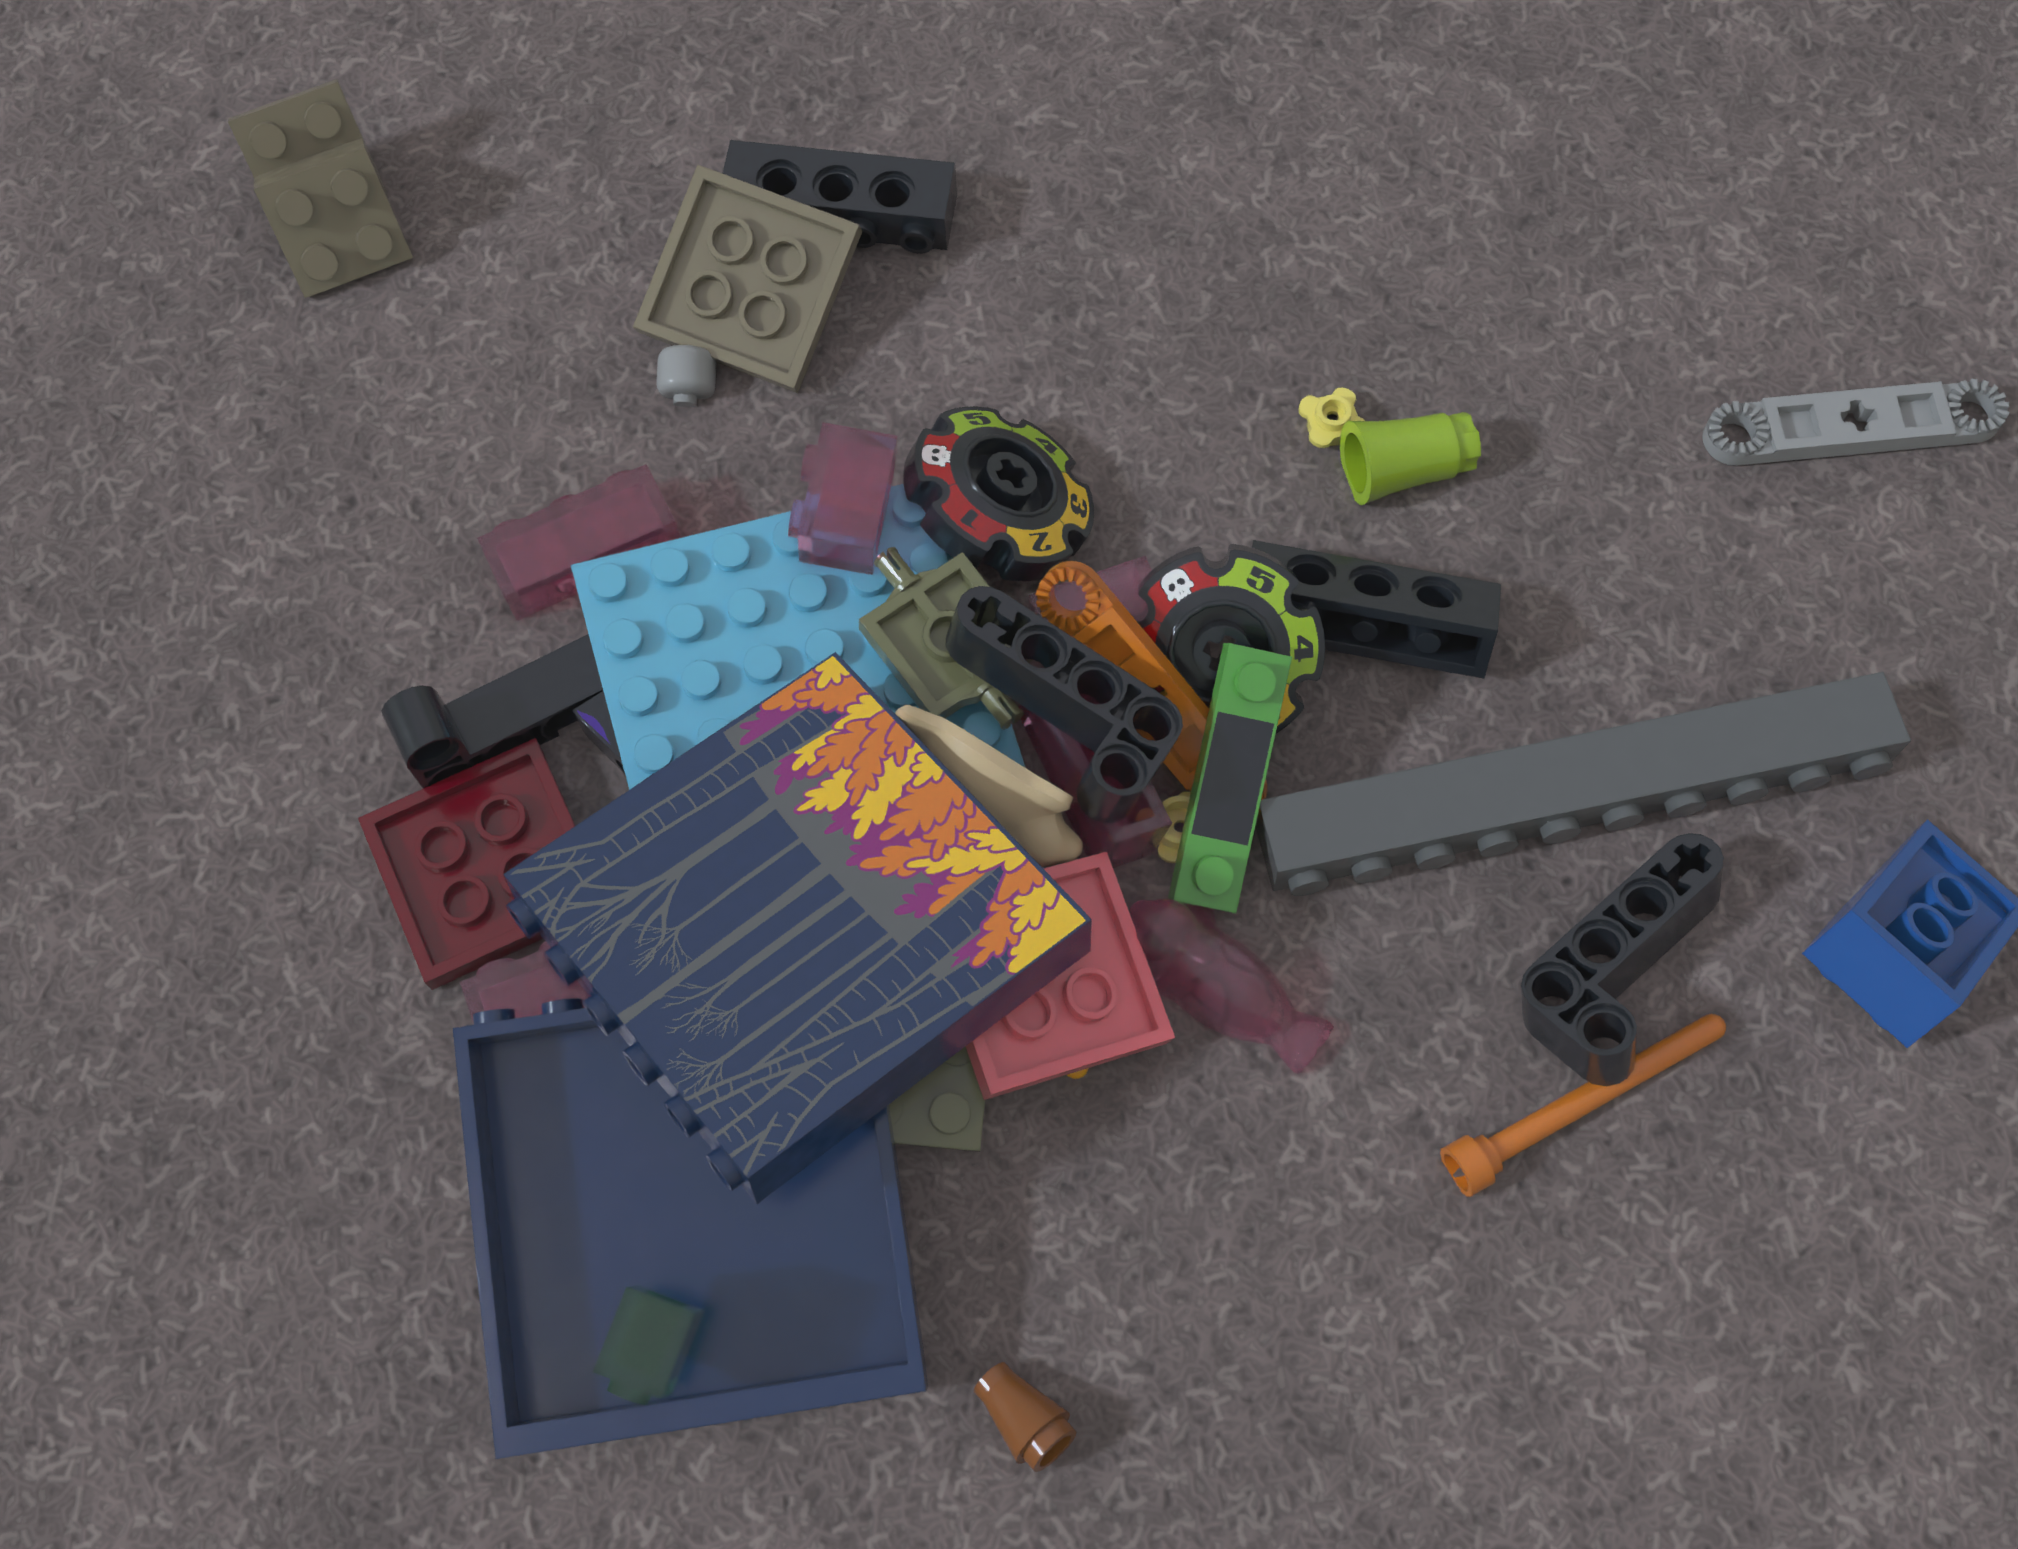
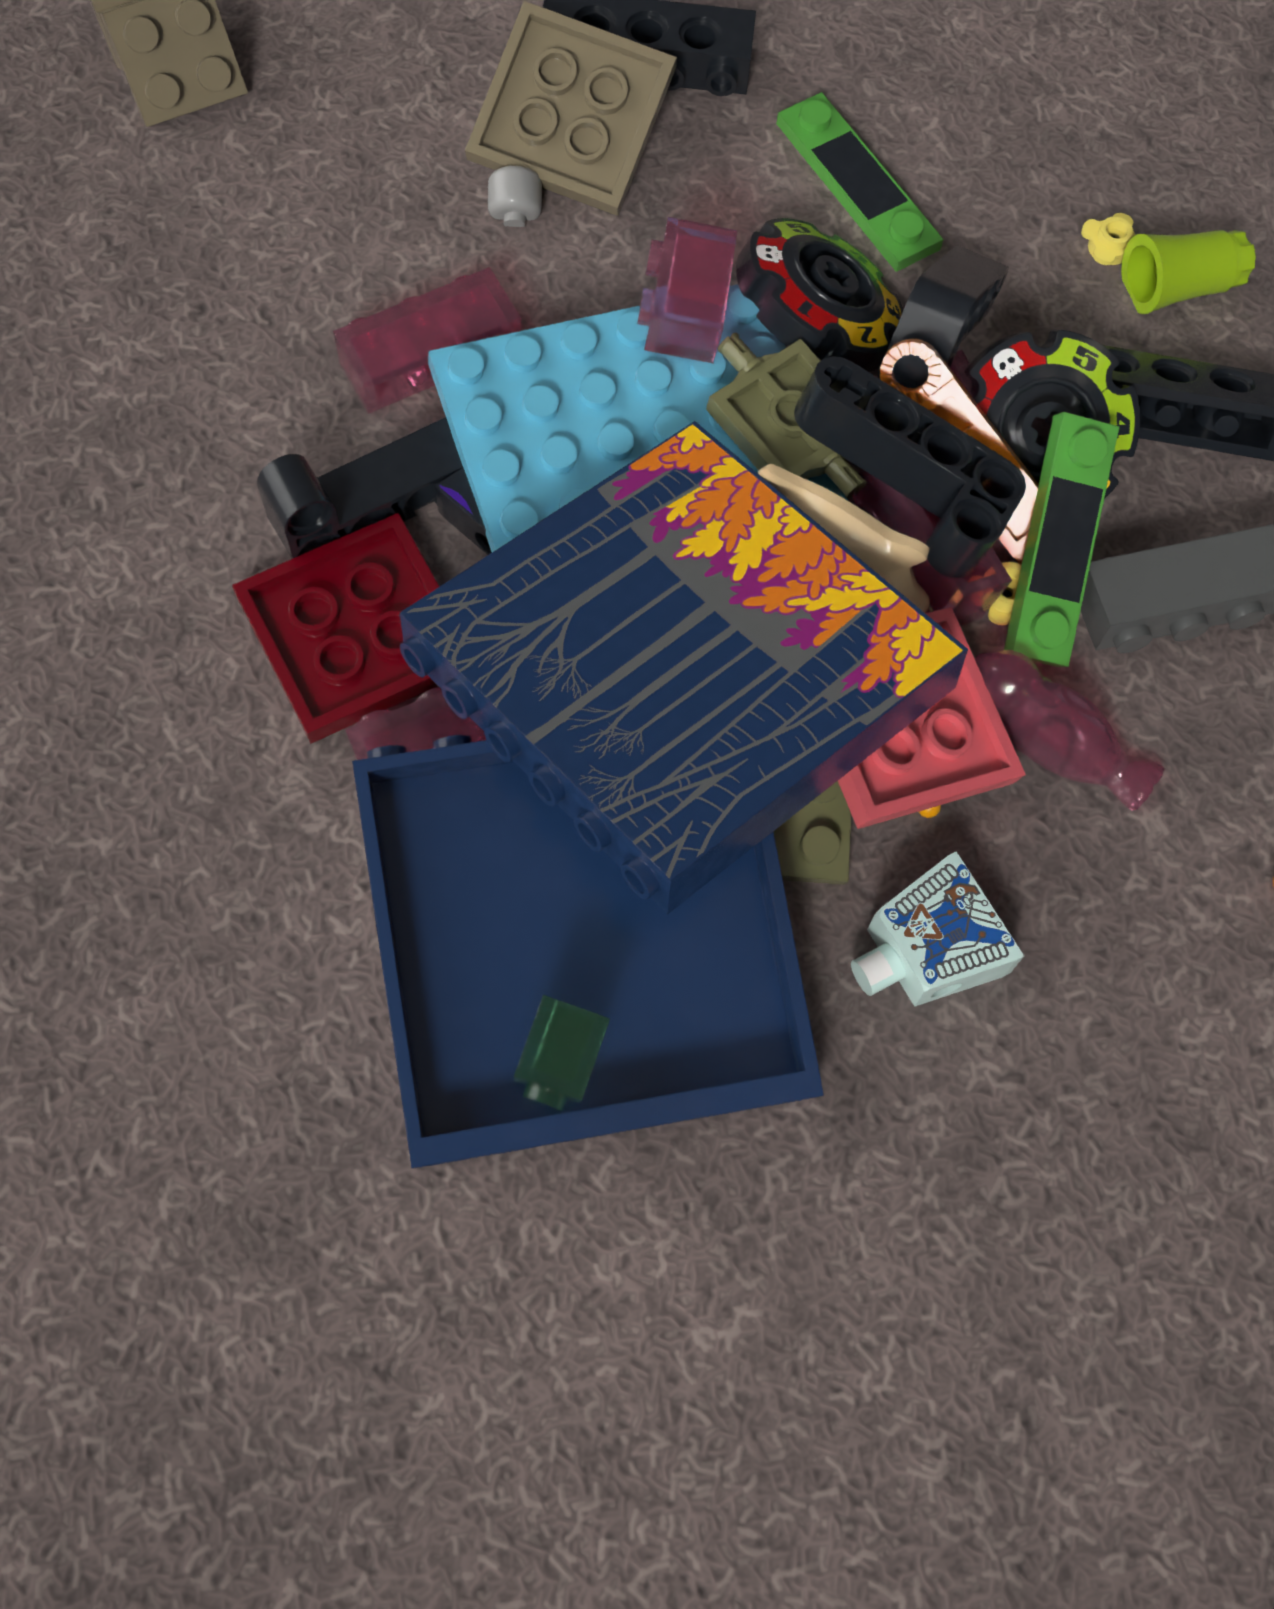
camera: 10 degrees left, 0 degrees up
(1026, 1418) = (913, 1123): dark orange cone -> none
(1060, 352) = (859, 182): none -> bright green plate
(1065, 1216) = (937, 938): none -> torso
(1128, 510) = (946, 308): none -> black beam

